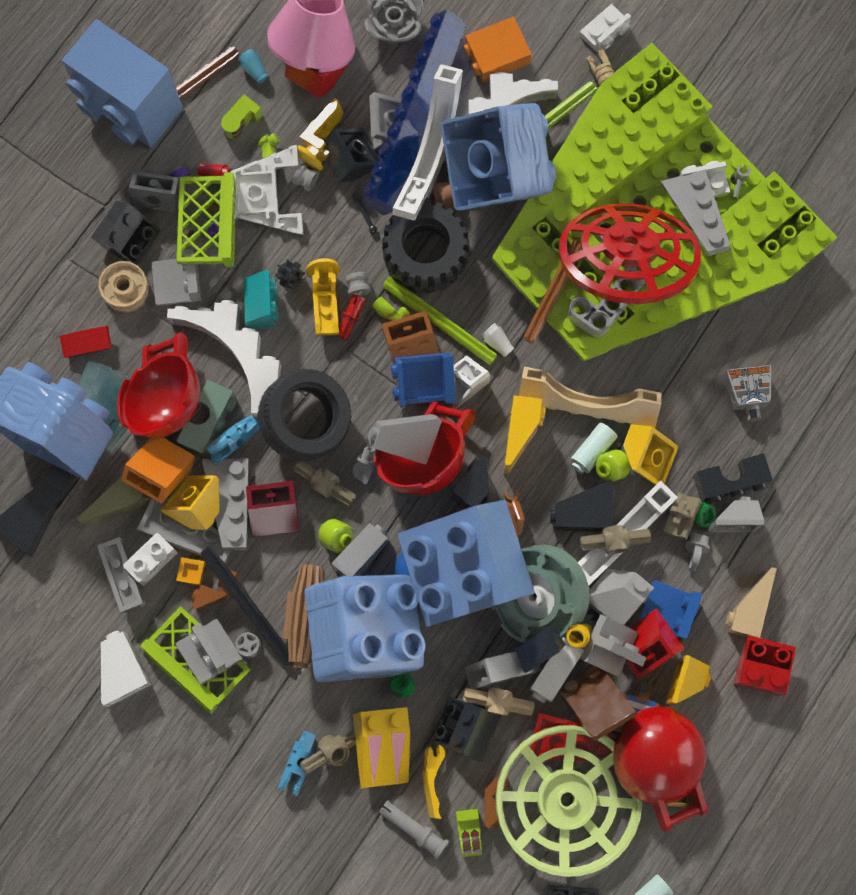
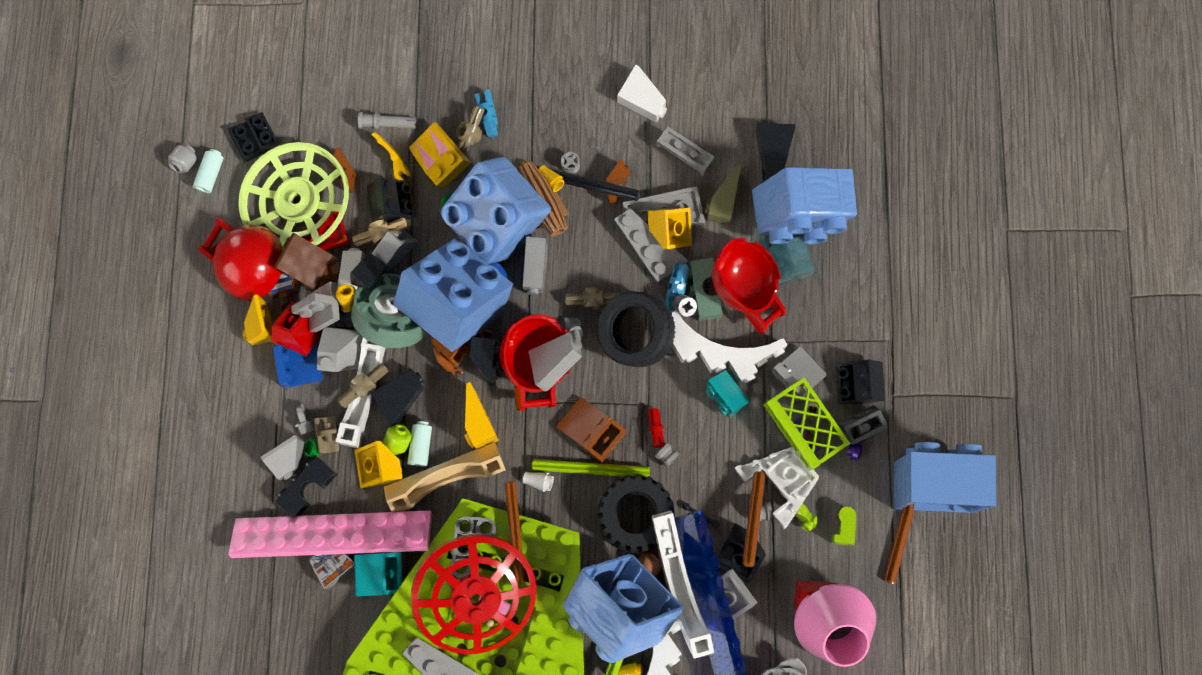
camera: 150 degrees right, 0 degrees up
(85, 342) = (828, 287): red slope -> none
(114, 277) = (836, 332): tan wheel -> none
(150, 559) = (674, 171): white bracket -> none
(158, 468) = (710, 230): orange brick -> none
(177, 671) = (601, 116): lime fence -> none
(190, 571) = (642, 183): light orange plate -> none
(208, 651) = (592, 141): light grey bracket -> none
(213, 170) = (829, 472): red cone -> none
(239, 411) = (683, 301): none -> wheel
(253, 66) = (866, 576): medium azure cone -> none
(273, 508) = (616, 258): dark red slope -> none
(279, 633) = (555, 180): none -> yellow cone
(290, 274) = (721, 429): black gear -> none
(314, 135) = (780, 555): yellow piece -> none
(319, 168) = (753, 519): none -> dark orange axle
(324, 295) = (683, 427): yellow piece -> none
(335, 535) = (560, 267): lime head -> none
(386, 311) = (629, 450): lime arm -> none
(424, 379) = (571, 413): blue panel -> none
(468, 379) = (542, 436): white slope -> none
(469, 832) = (349, 142): lime leg -> none
(709, 345) = (377, 574): none -> teal slope
(735, 412) = (331, 534): none -> bright pink plate
(751, 610) = (242, 402): tan slope -> none
(765, 666) = (209, 366): red slope -> none

